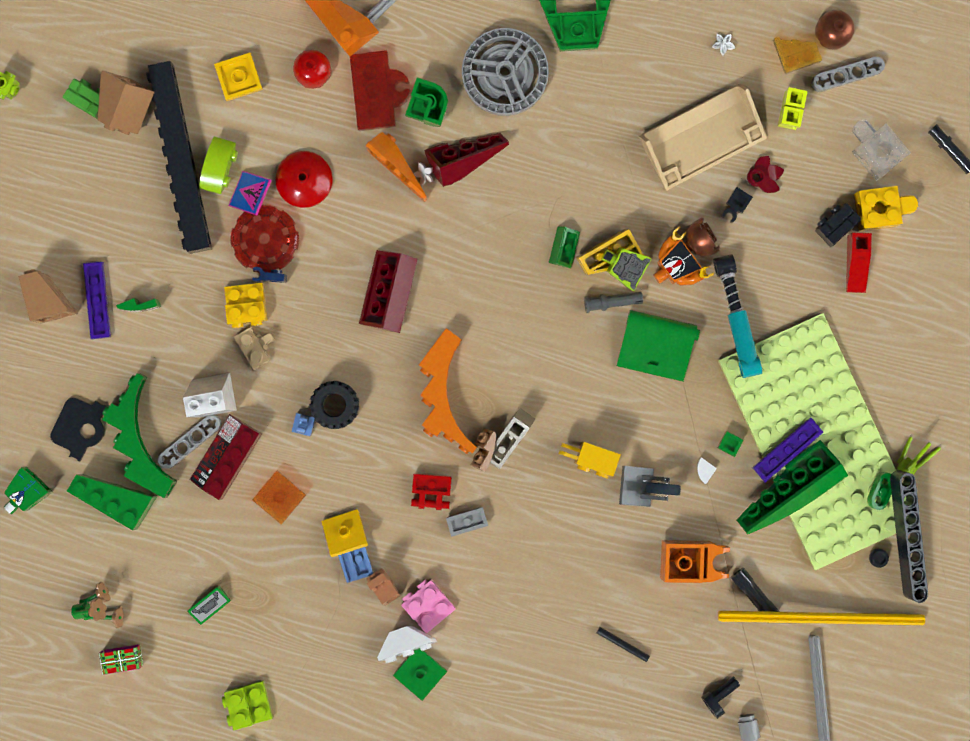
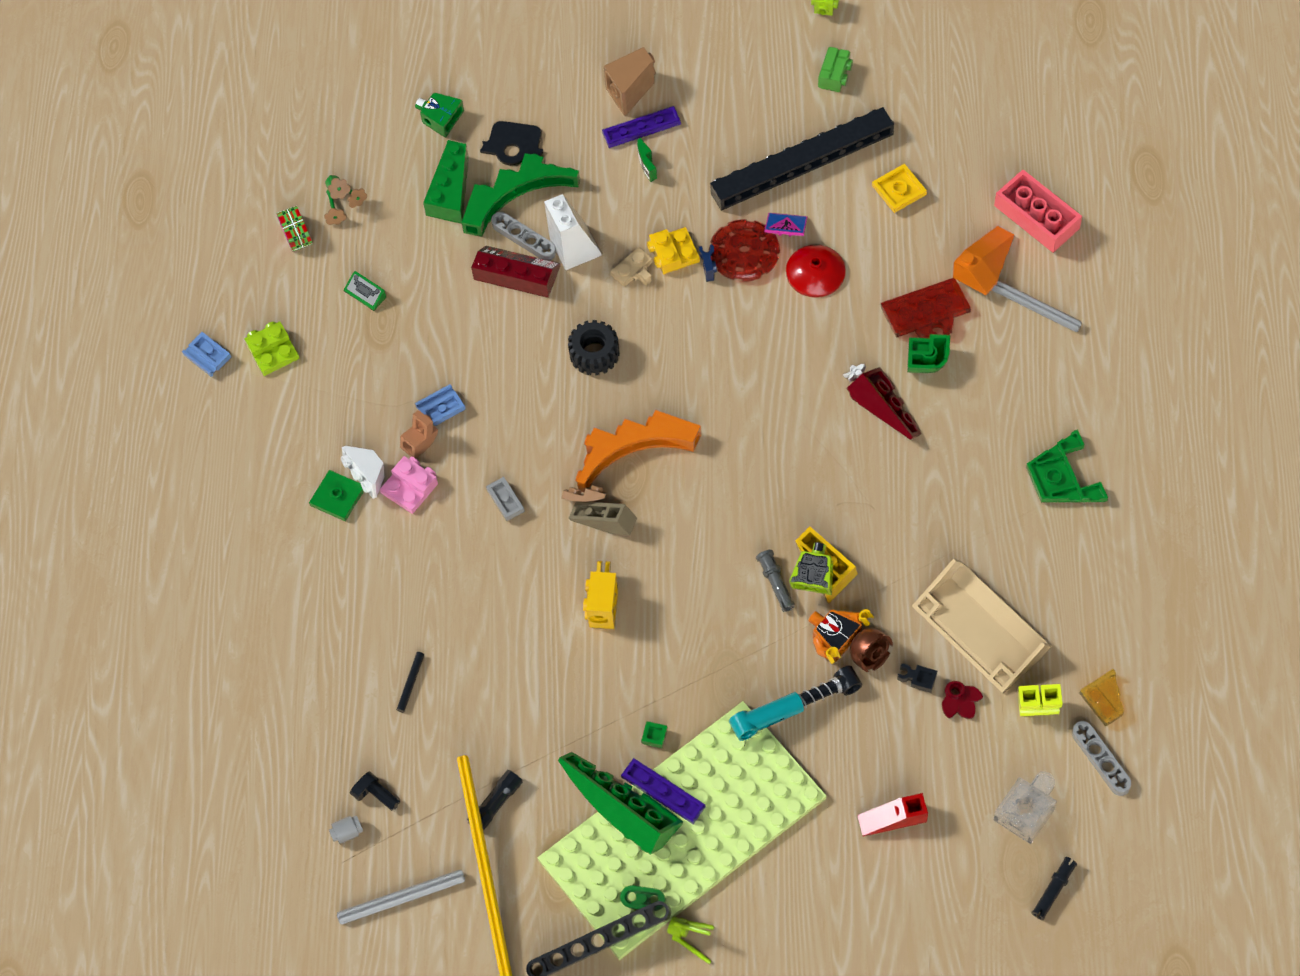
camera: 80 degrees right, 25 degrees down
(122, 103) = (838, 94): medium nougat slope -> none
(217, 165) = (804, 189): lime brick -> none
(279, 497) = (487, 325): clear orange plate -> none
(303, 424) = (564, 328): medium blue tile -> none
(312, 69) = (929, 248): red cylinder -> none
(344, 533) = (465, 389): yellow plate -> none
(388, 154) = (865, 333): orange wedge -> none
(388, 291) = (723, 370): dark red slope -> none
(431, 485) = (534, 455): red plate -> none
(508, 57) = (980, 436): light grey piece -> none
(564, 247) = (821, 522): green slope -> none
(637, 486) = (584, 654): dark grey plate -> none
(659, 342) = (745, 635): green door -> none
(697, 563) = (516, 729): orange brick -> none
(705, 470) = (619, 718): white tile -> none
(723, 43) = (1090, 623): white plant -> none
(834, 29) = (1146, 731): copper cylinder -> none
(838, 224) = (935, 787): black brick -> none
(878, 558) = (567, 923): black plate -> none
(882, 207) = (962, 826): yellow brick -> none

